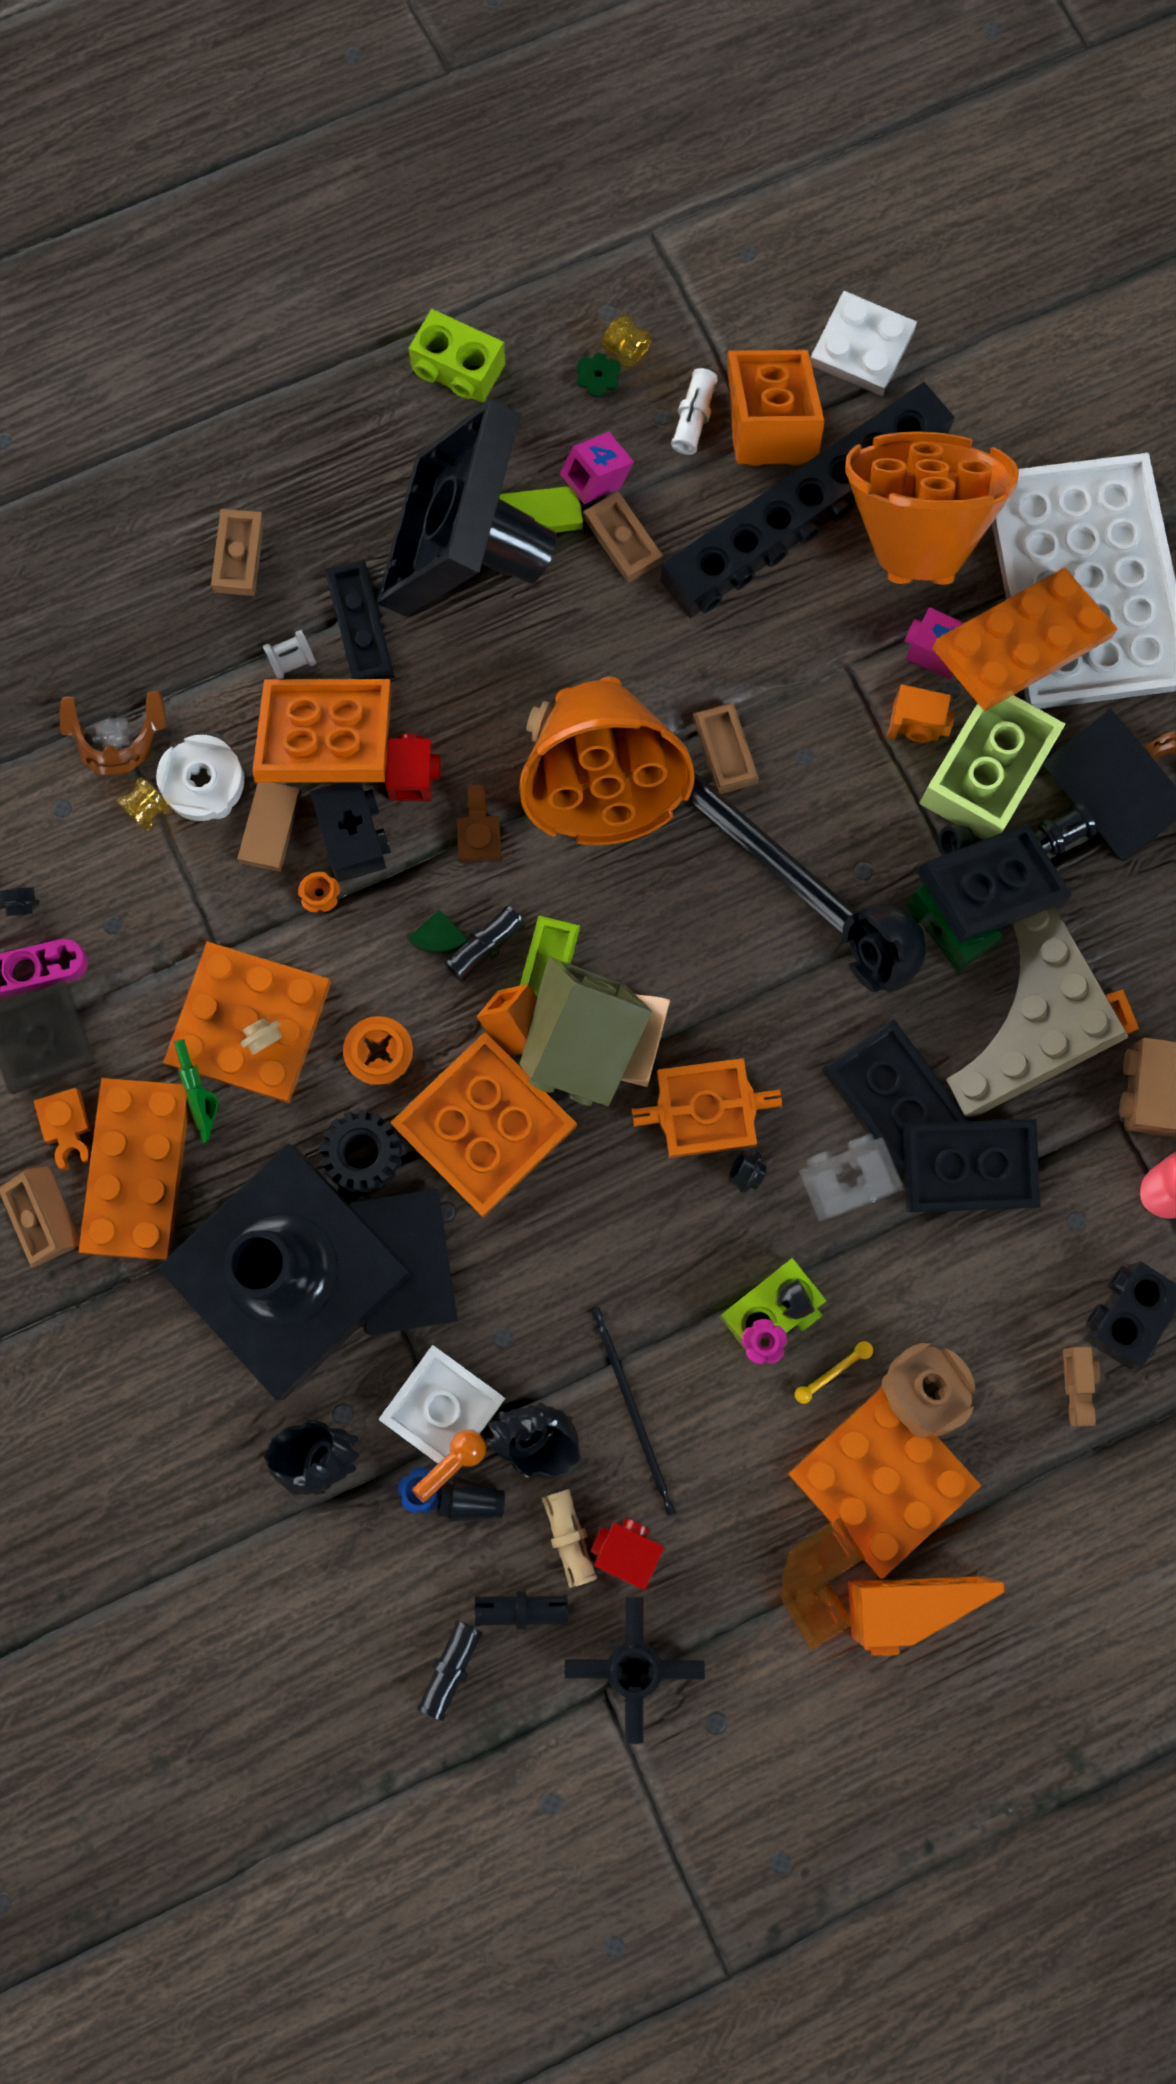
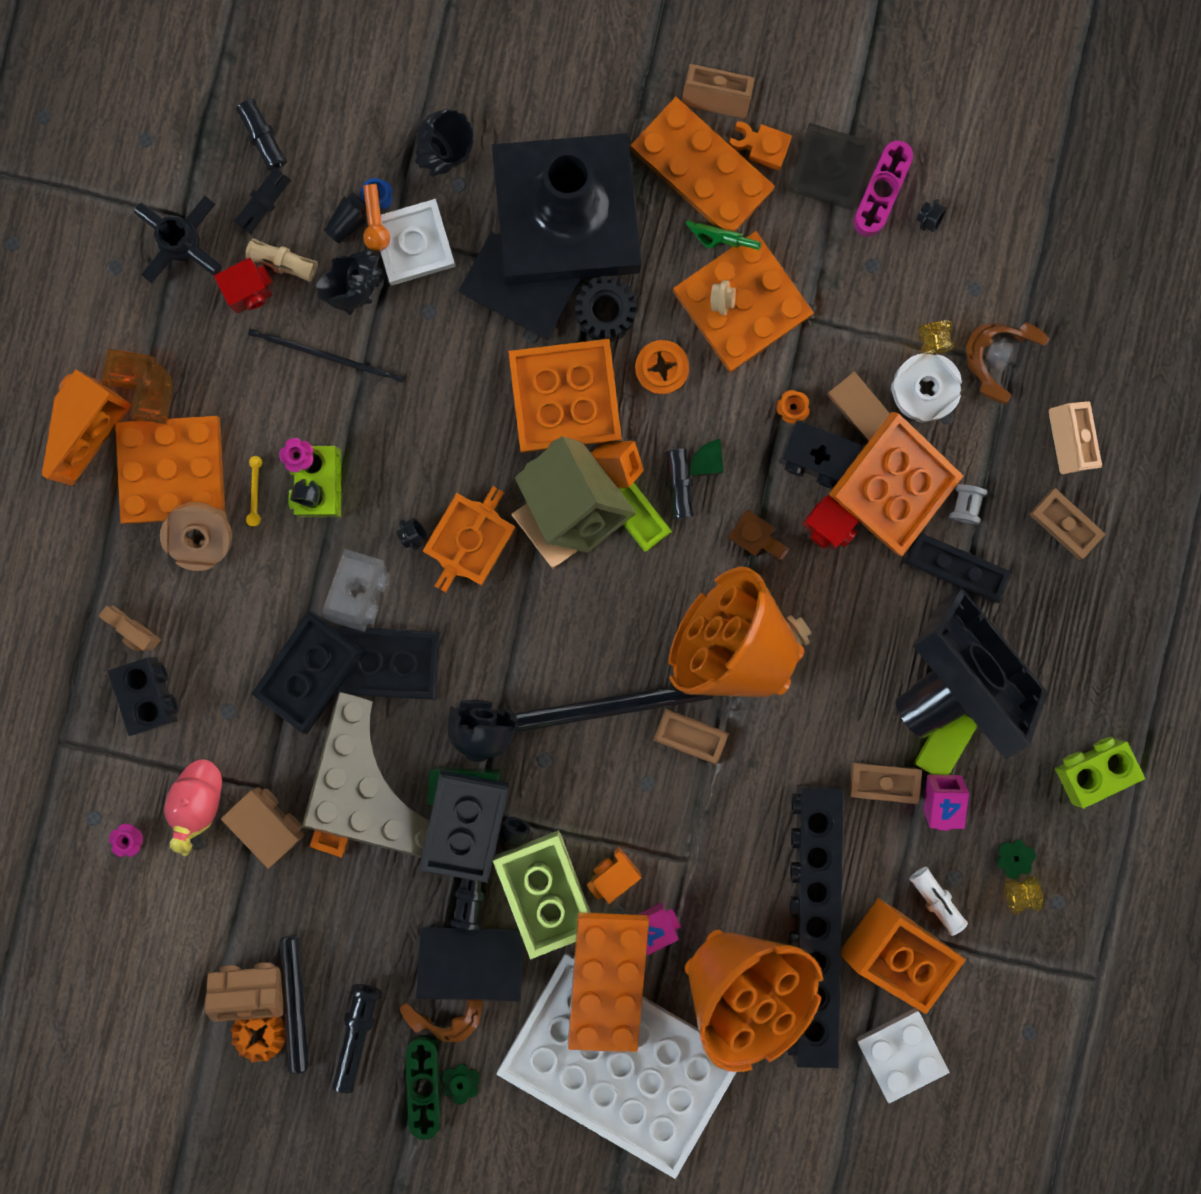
camera: 125 degrees right, 10 degrees up
(144, 607) = (1075, 437): none -> light nougat slope

